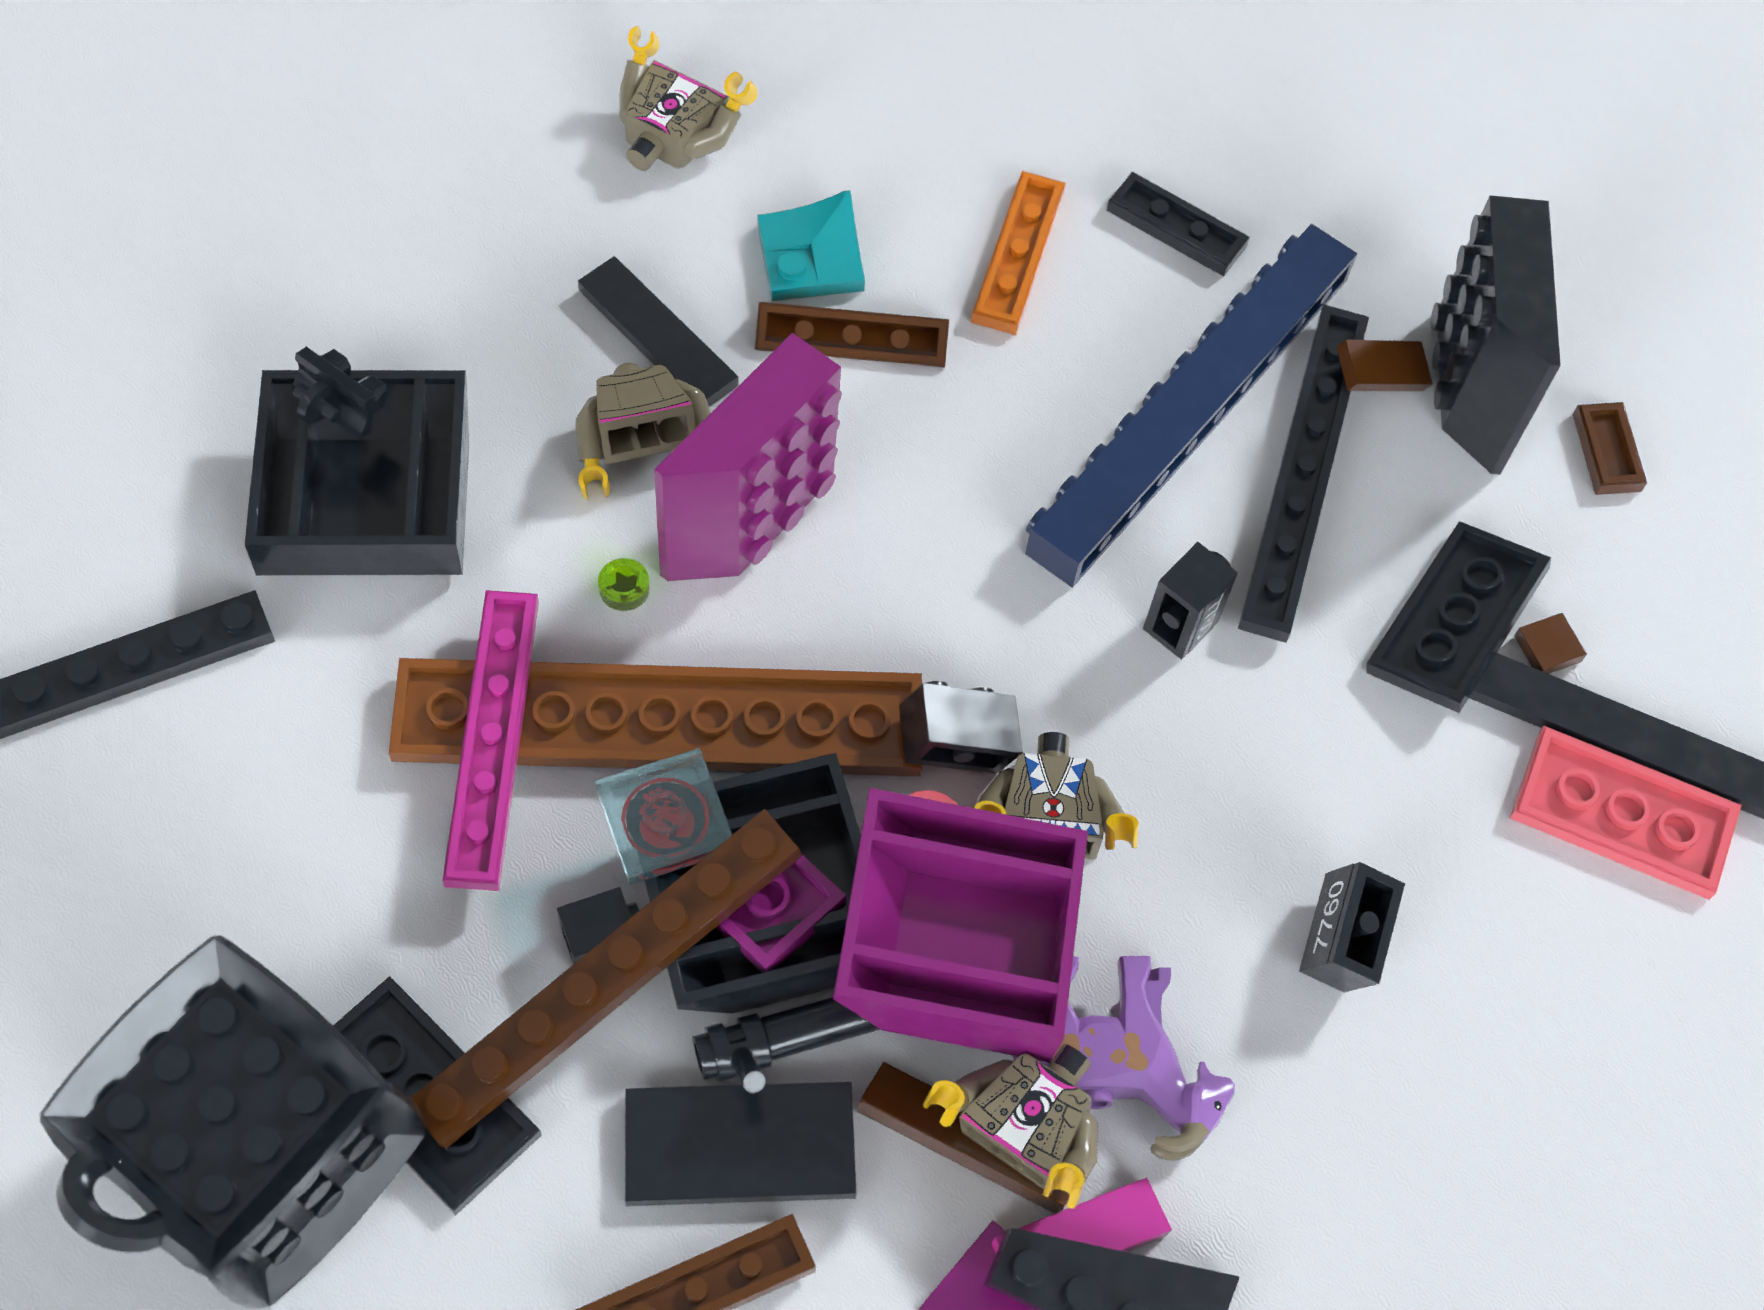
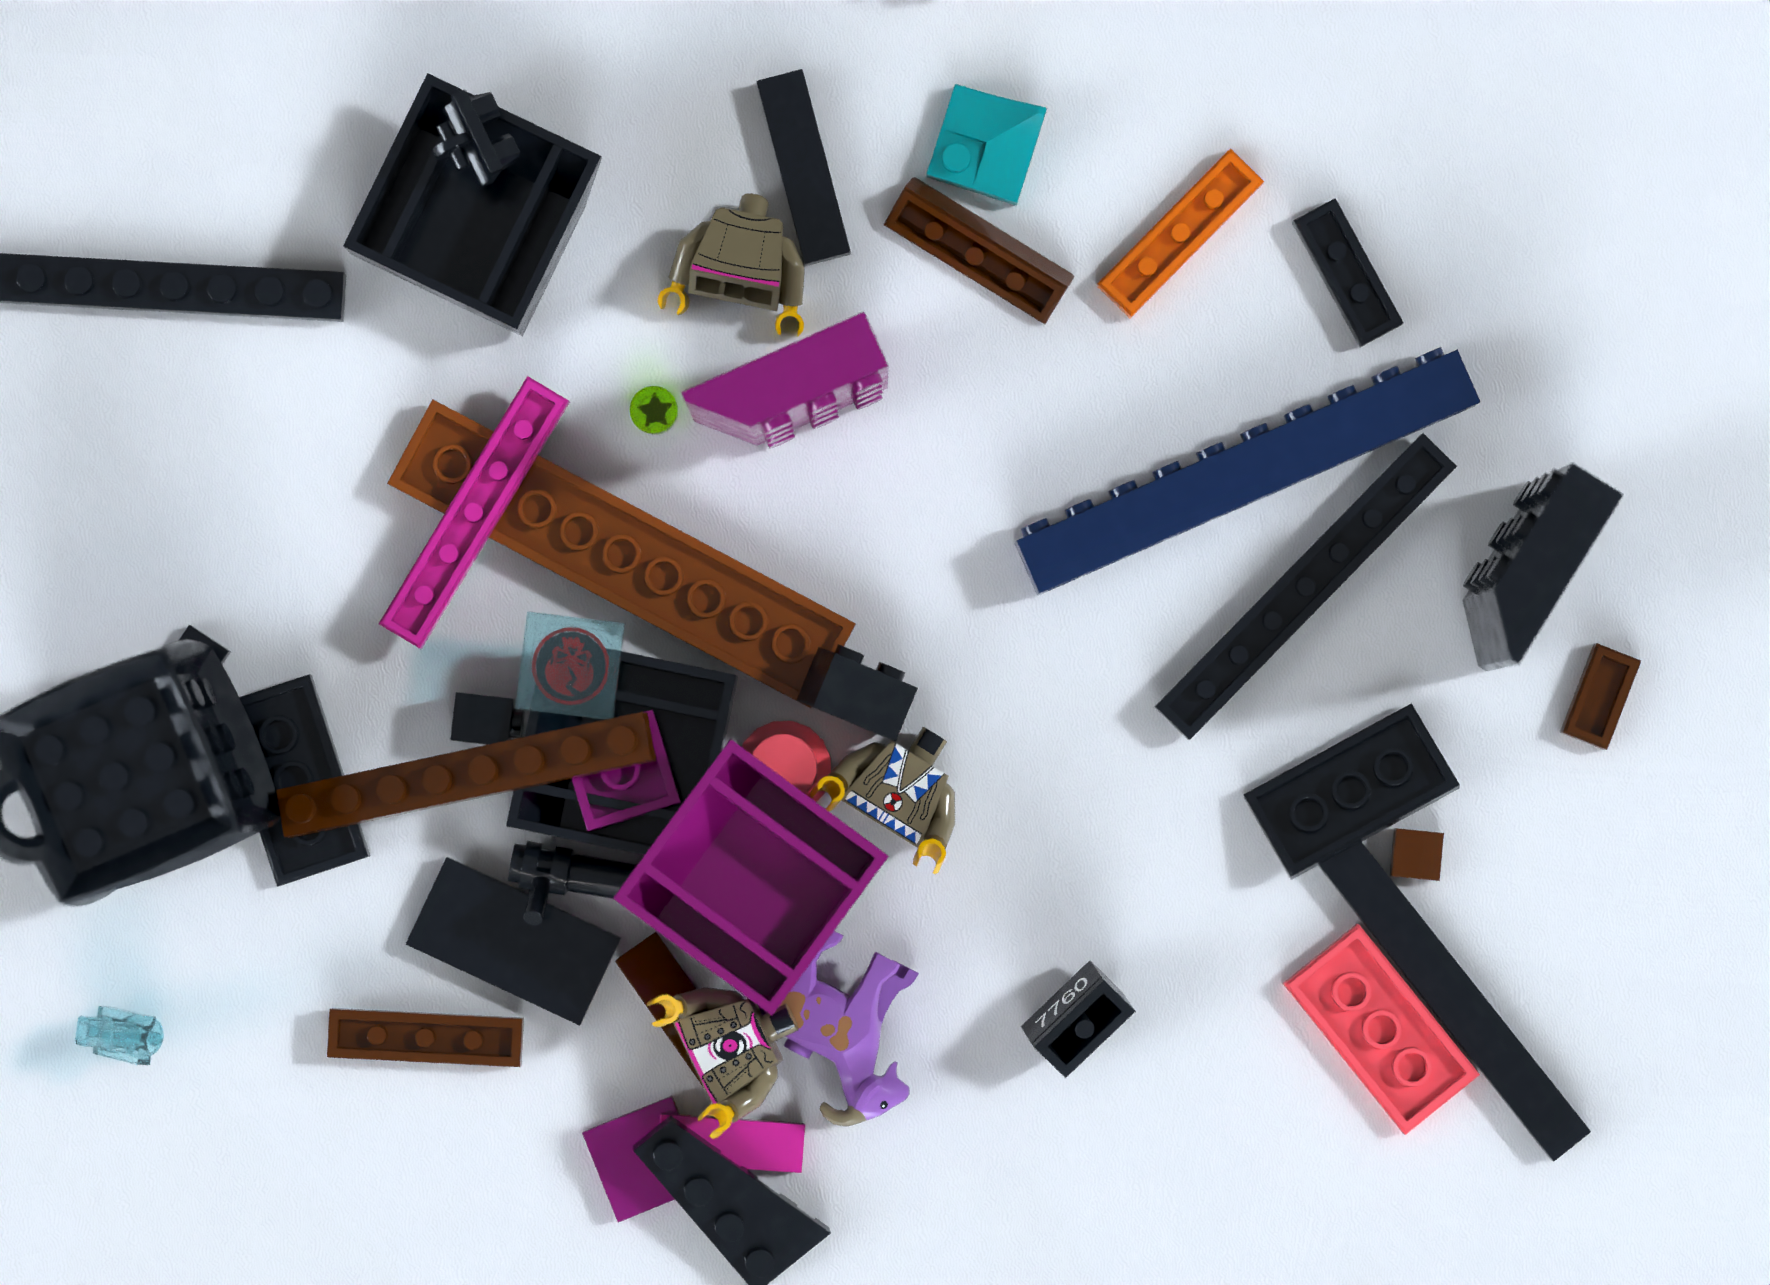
camera: 30 degrees right, 25 degrees up
(1190, 600) = (1116, 673): black brick -> none
(1384, 365) = (1438, 523): reddish brown tile -> none

